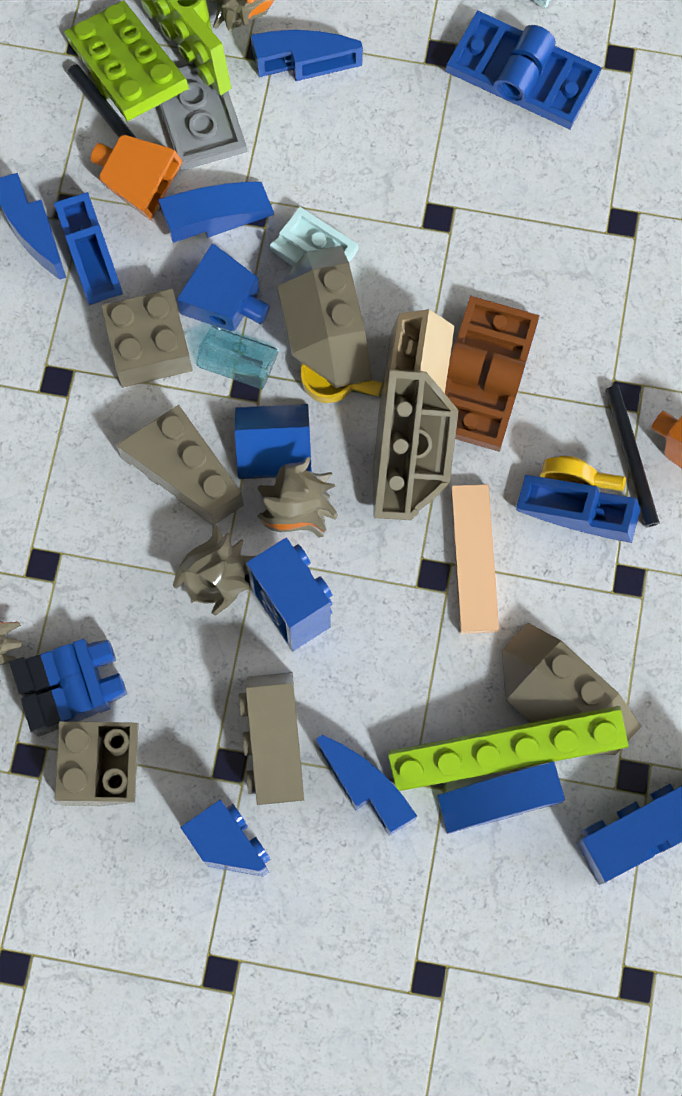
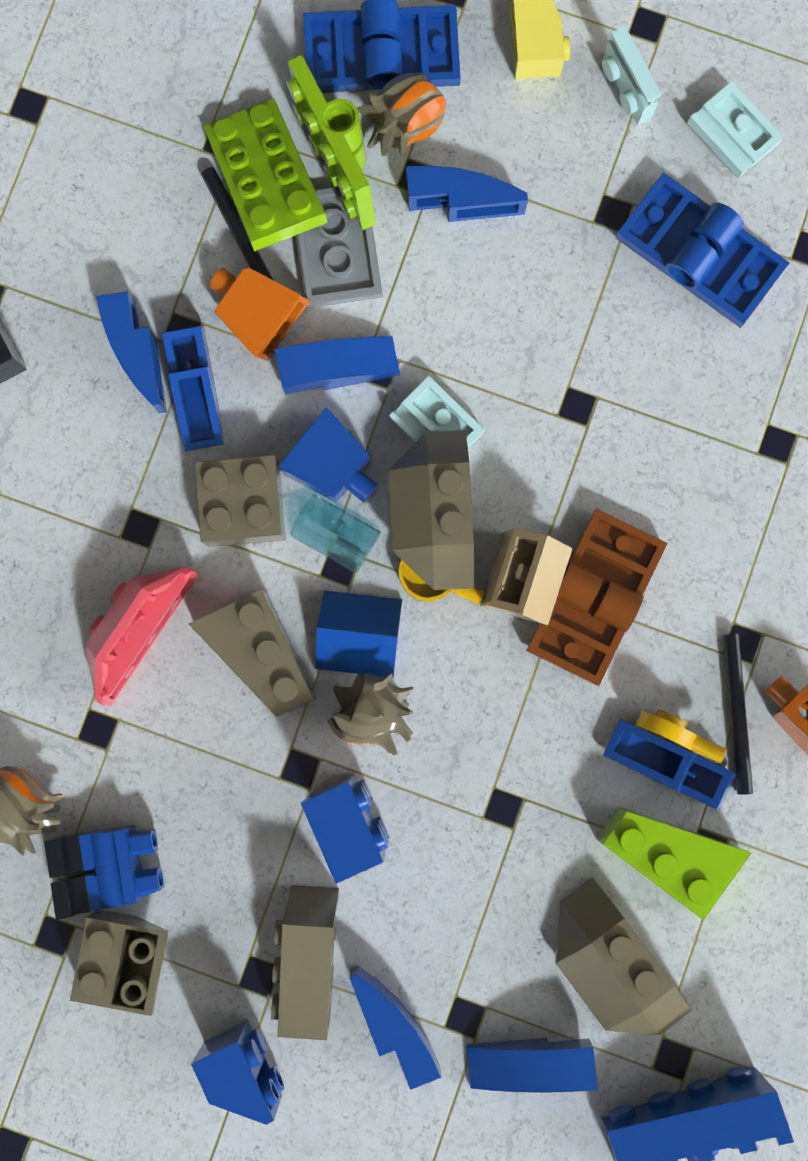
camera: 15 degrees right, 10 degrees up
(64, 461) = (132, 626): none -> coral wedge
(214, 572) = (274, 777): dark tan hair -> none
(412, 444) = (502, 676): dark tan wedge -> none
(474, 559) = (549, 800): light nougat tile -> none
(508, 748) = (549, 1021): lime plate -> none
(596, 586) = (675, 859): none -> lime wedge

